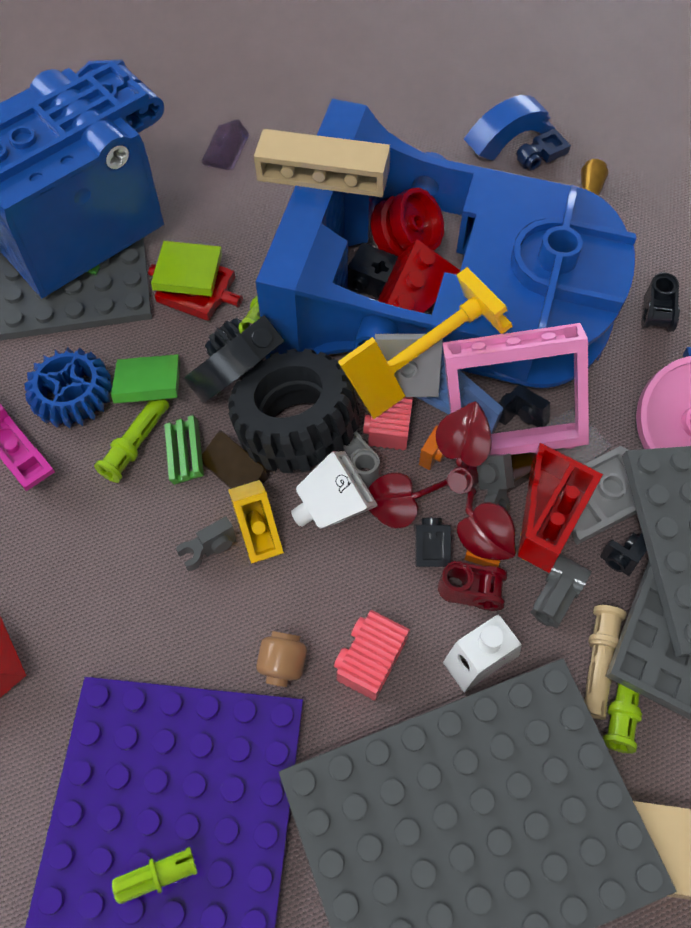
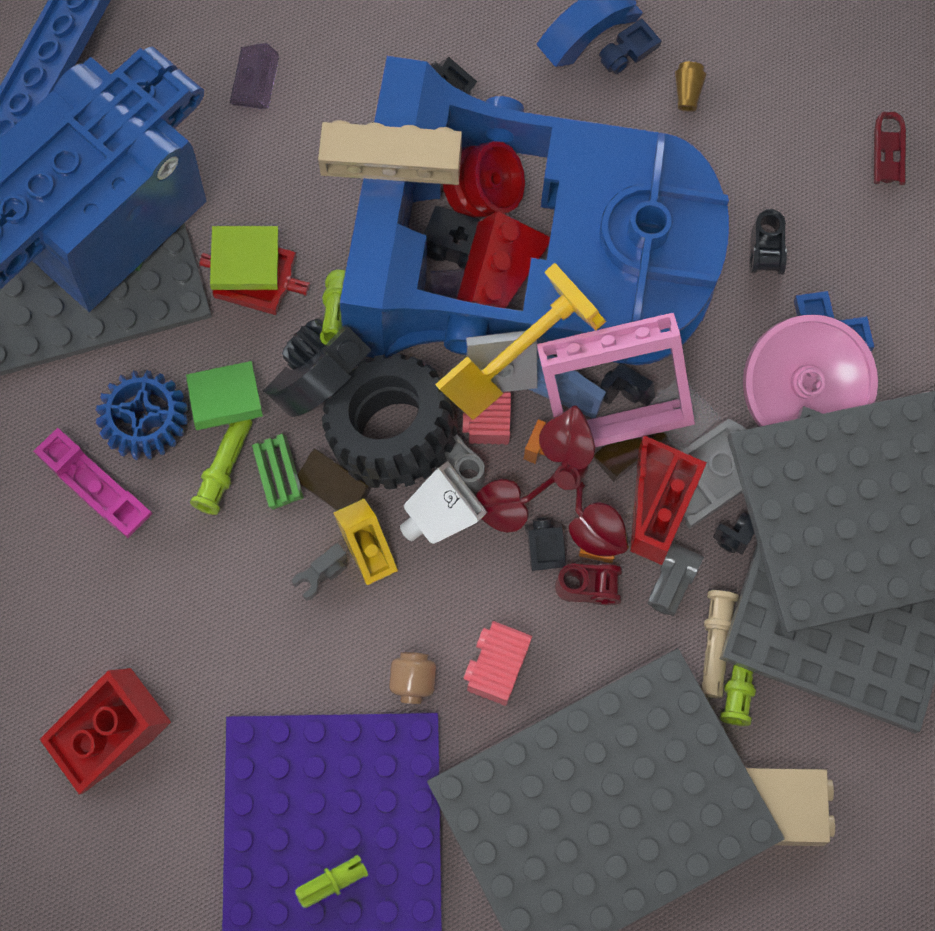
camera: 10 degrees left, 10 degrees up
(485, 650) = (603, 649): white torso -> none
(497, 477) = (605, 471): dark grey plate -> none

